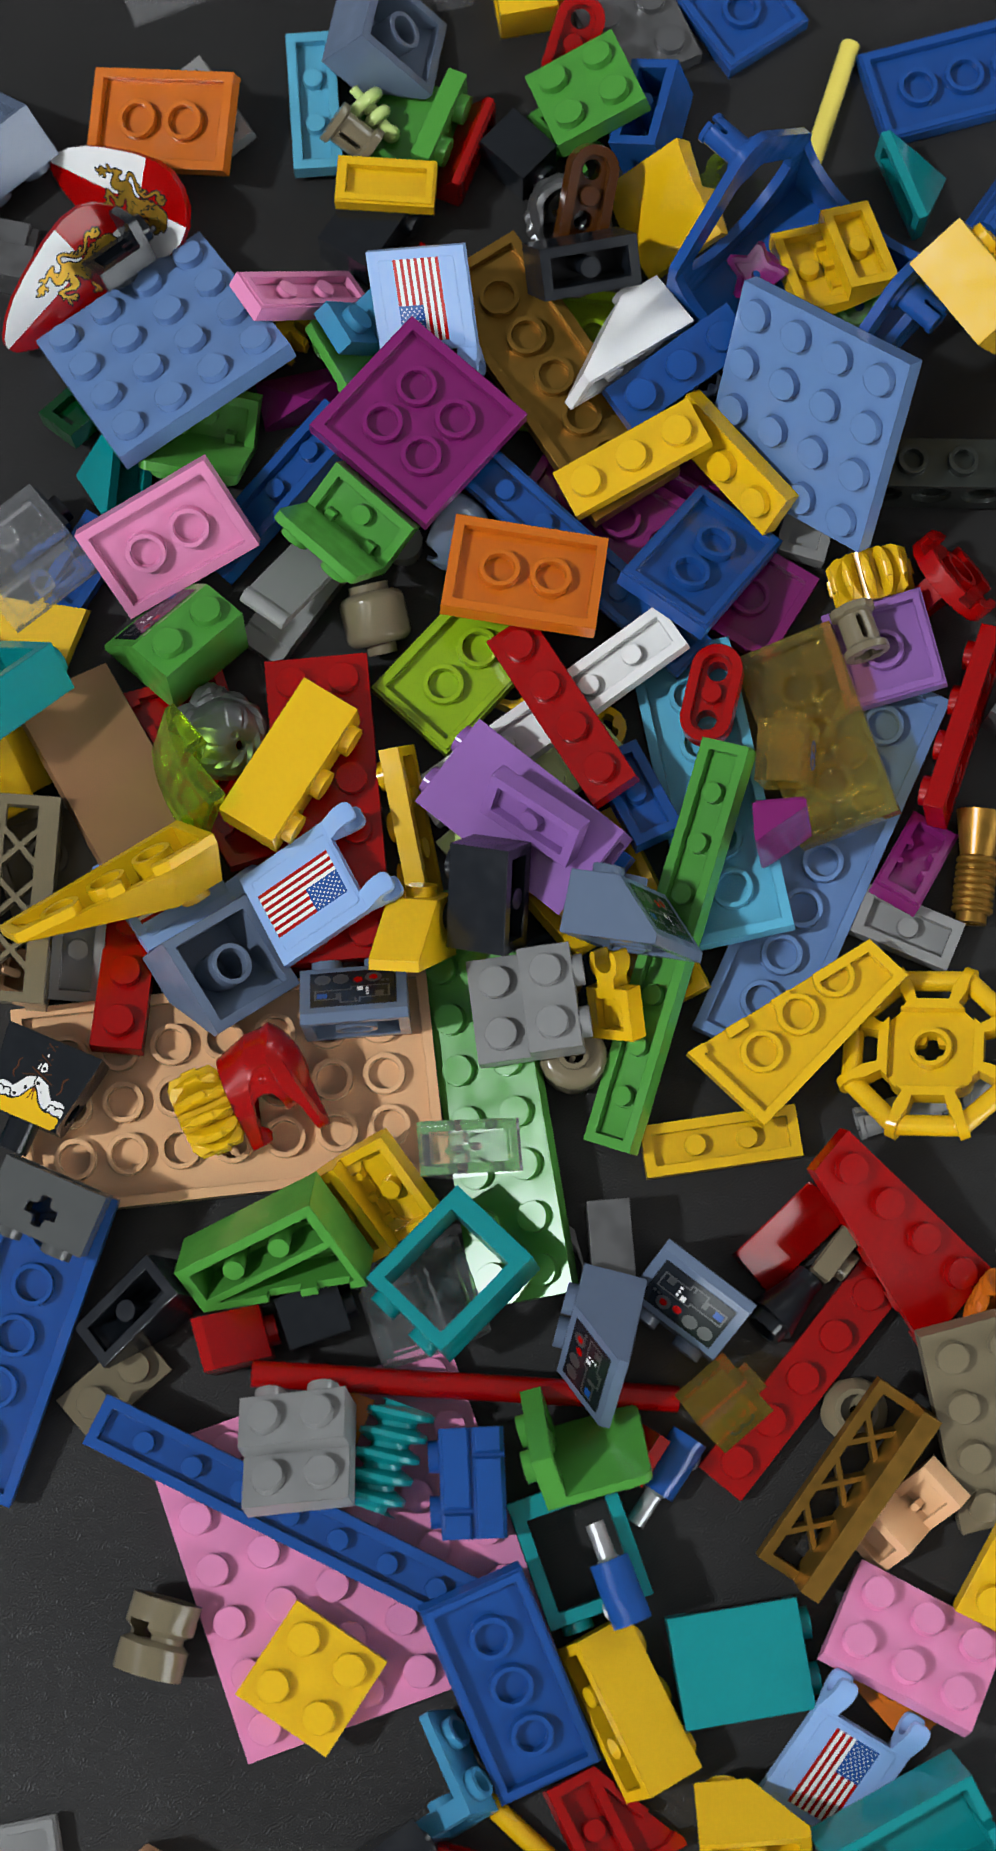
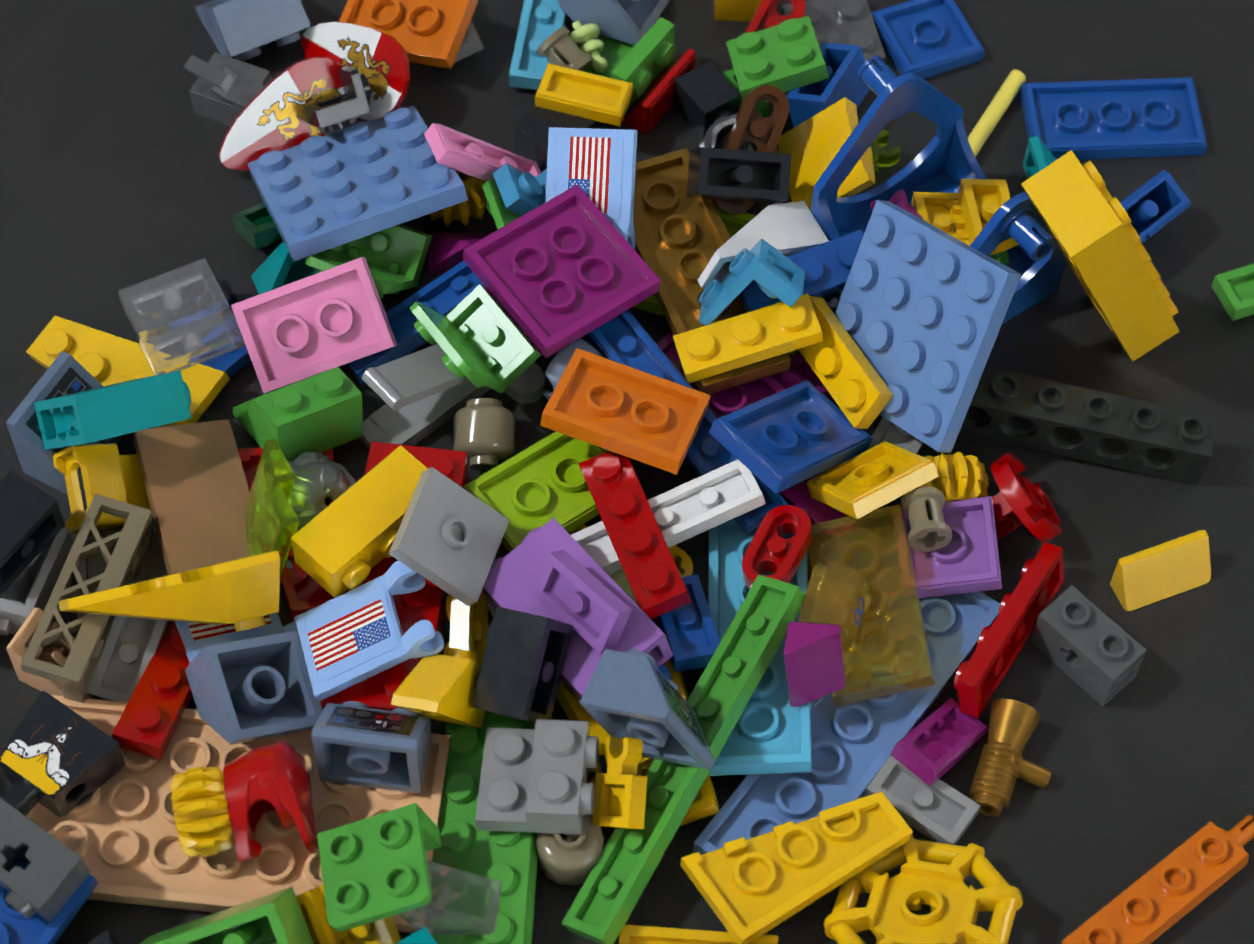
camera: 10 degrees right, 20 degrees down
(379, 769) = (449, 536): none -> light grey plate
(396, 1138) = (377, 866): none -> bright green bracket
(631, 381) = (763, 263): none -> dark azure bracket
(795, 596) = (872, 479): none -> yellow tile

